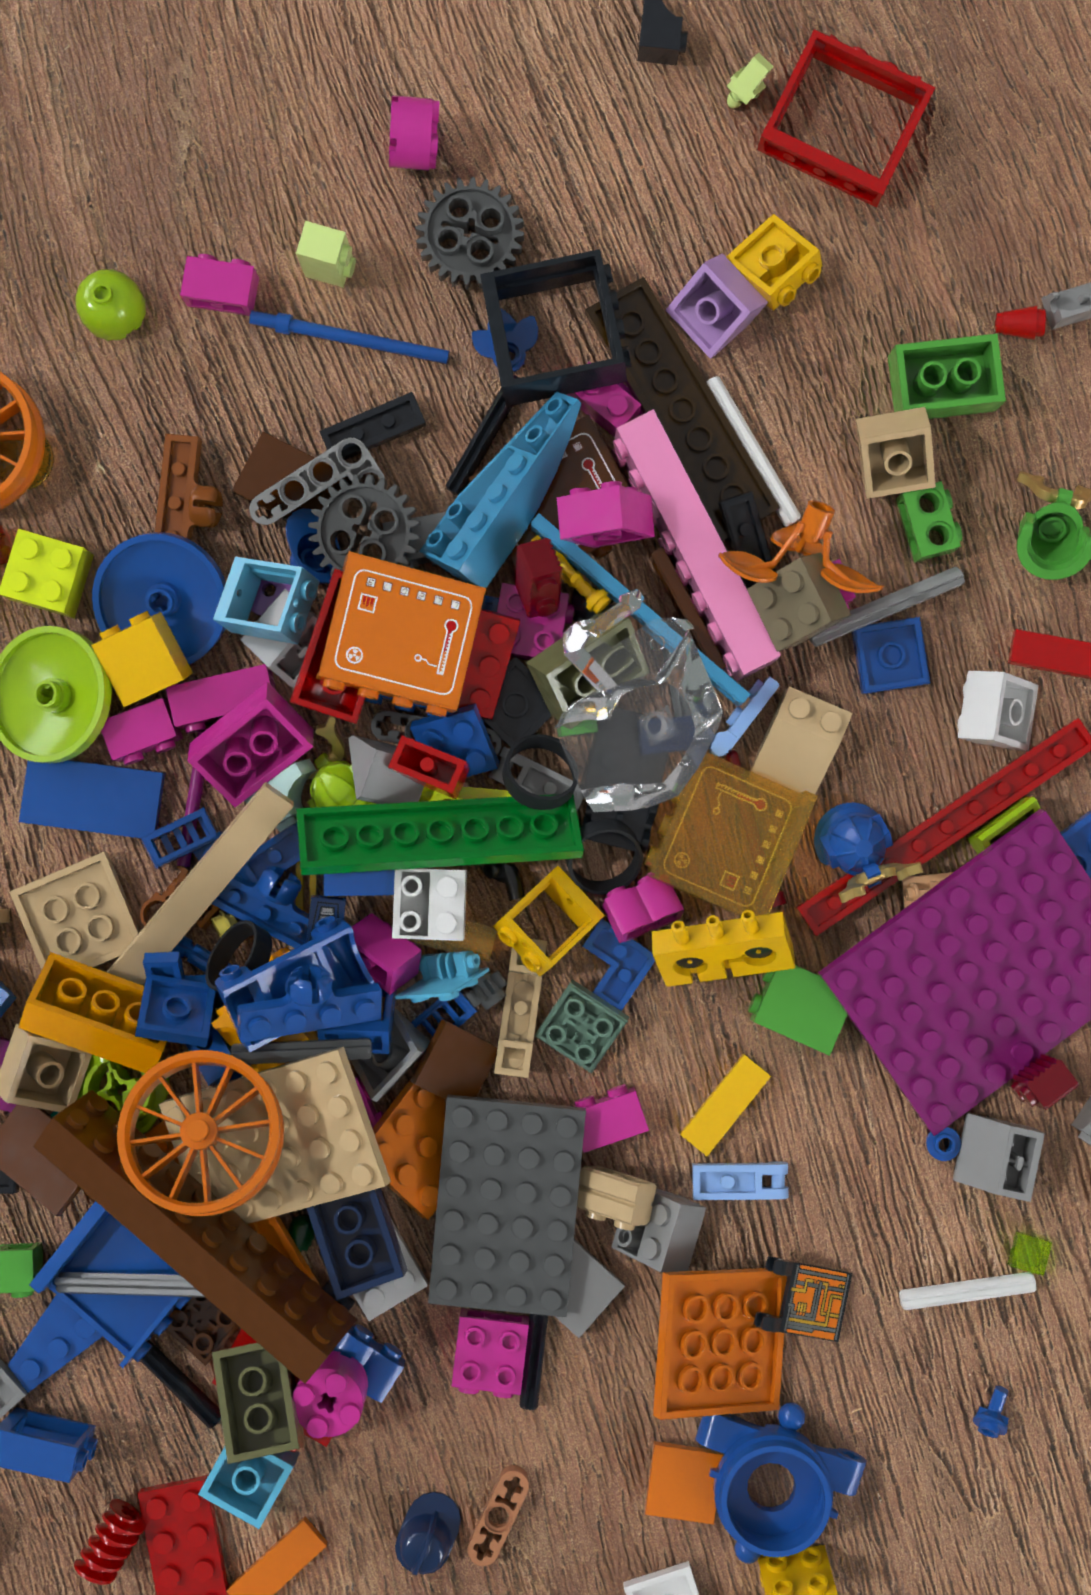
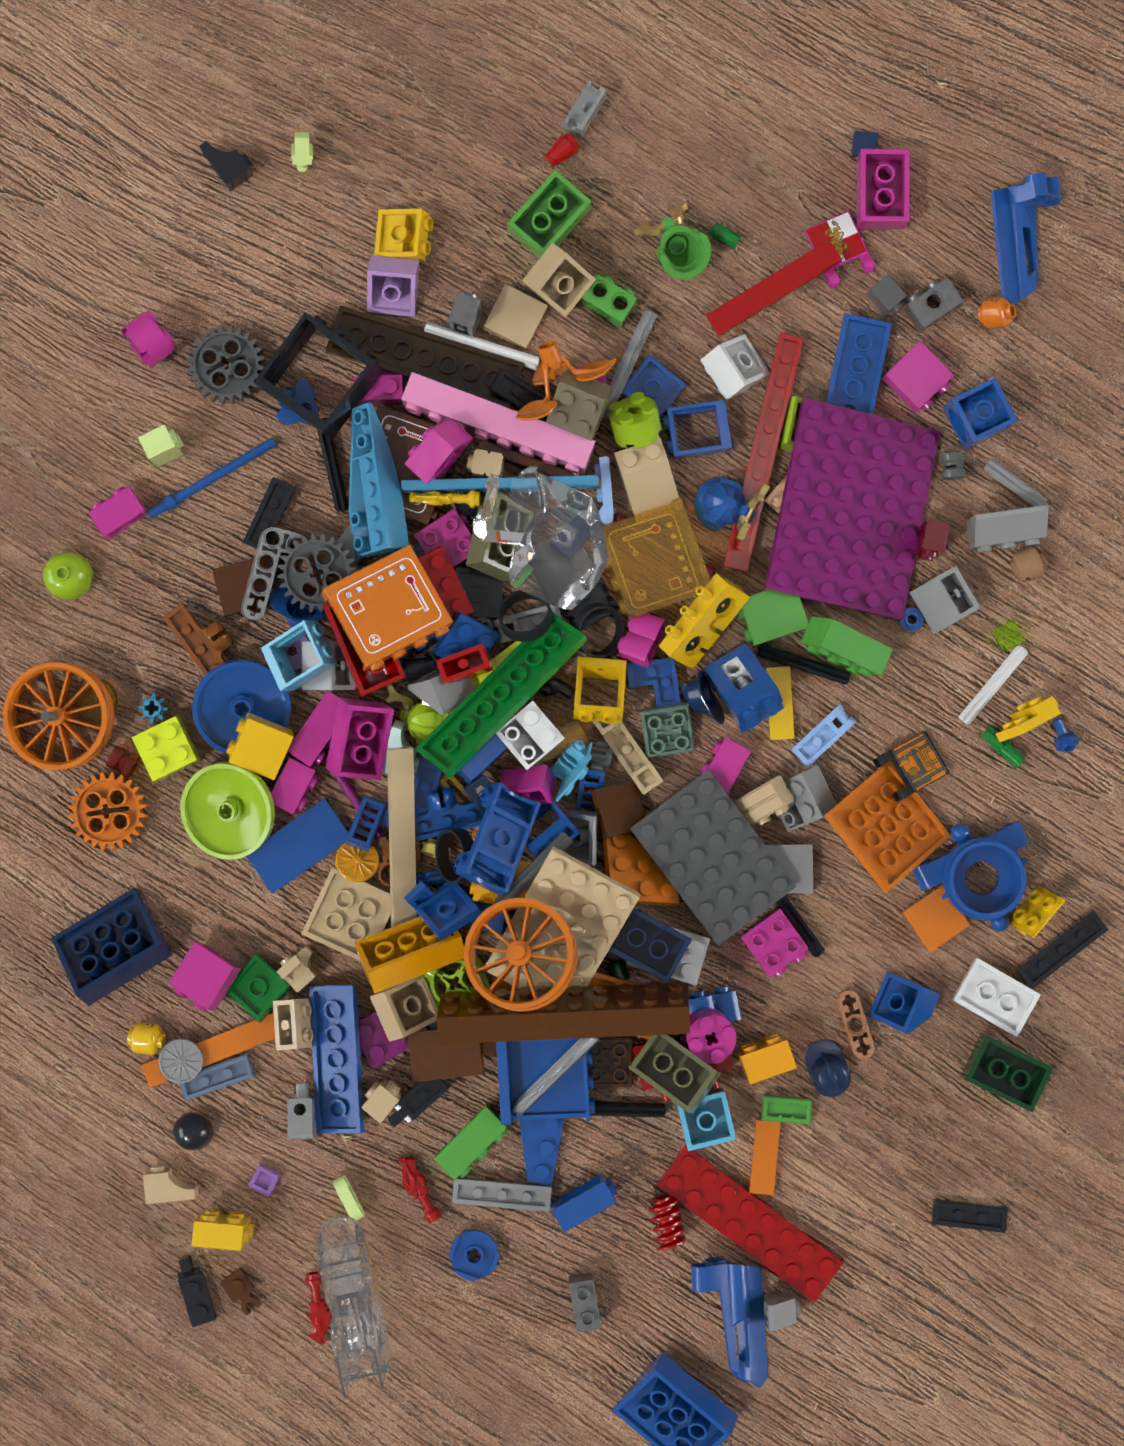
camera: 45 degrees left, 0 degrees up
(61, 519) = (157, 714): none -> dark azure gear
(132, 871) = (356, 864): none -> light orange wheel
(309, 1007) = (517, 842): blue plate -> none
(344, 1539) = (786, 1109): none -> bright green plate
(370, 1470) = (766, 1058): none -> light orange brick
(378, 724) = (417, 668): none -> black cone
(538, 577) = (432, 514): dark red brick -> none
(567, 1542) = (903, 1003): none -> blue slope
(641, 573) = (483, 464): none -> tan brick
(648, 1026) = (702, 698): none -> dark blue piece
(699, 1080) = (753, 700): none -> blue brick
(766, 400) = (465, 313): none -> flat silver brick
(787, 1087) = (804, 664): none -> black axle
(815, 452) = (515, 316): none -> tan tile
(820, 164) = (376, 162): red window -> none
(842, 672) = (635, 421): none -> lime brick
(849, 1114) = (846, 647): none -> bright green brick
(918, 1367) = (1003, 748): none -> green axle
(928, 760) = (718, 408): none -> blue window
(975, 1366) = (1029, 715): none -> yellow plate

